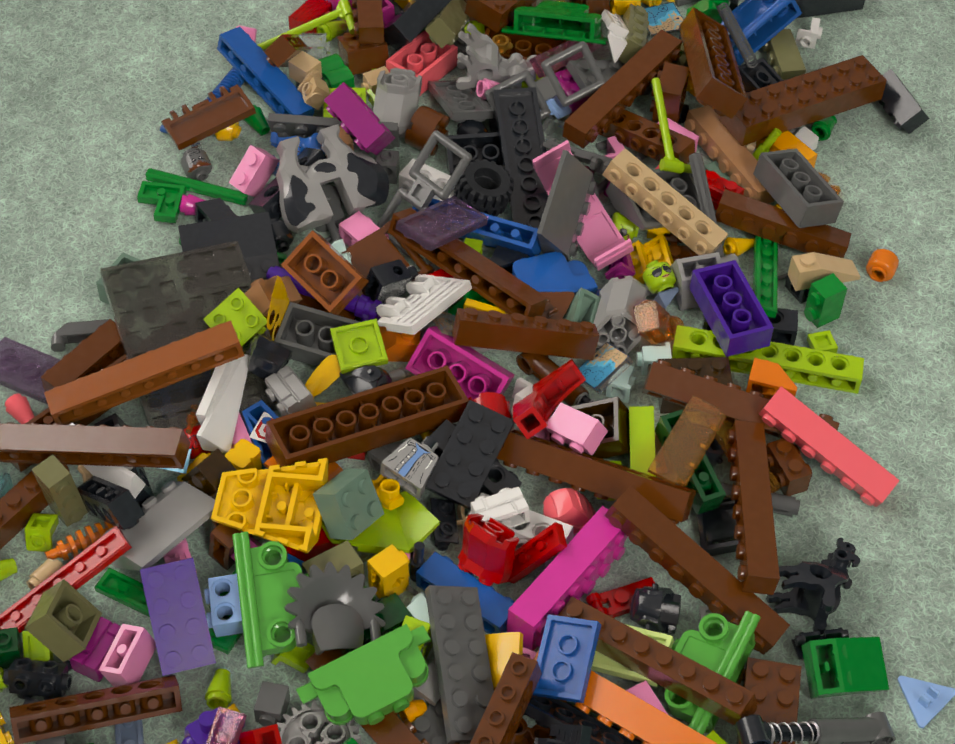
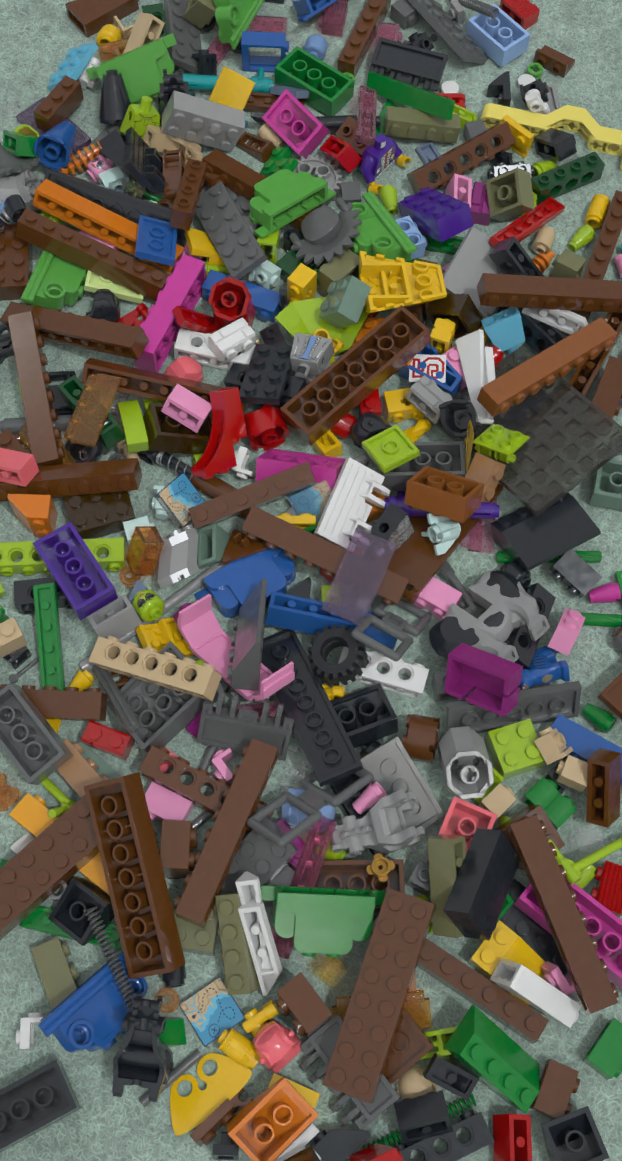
camera: 165 degrees right, 15 degrees up
(191, 419) = (497, 361): clear orange hand -> none
(669, 162) = (157, 732): lime bar -> none

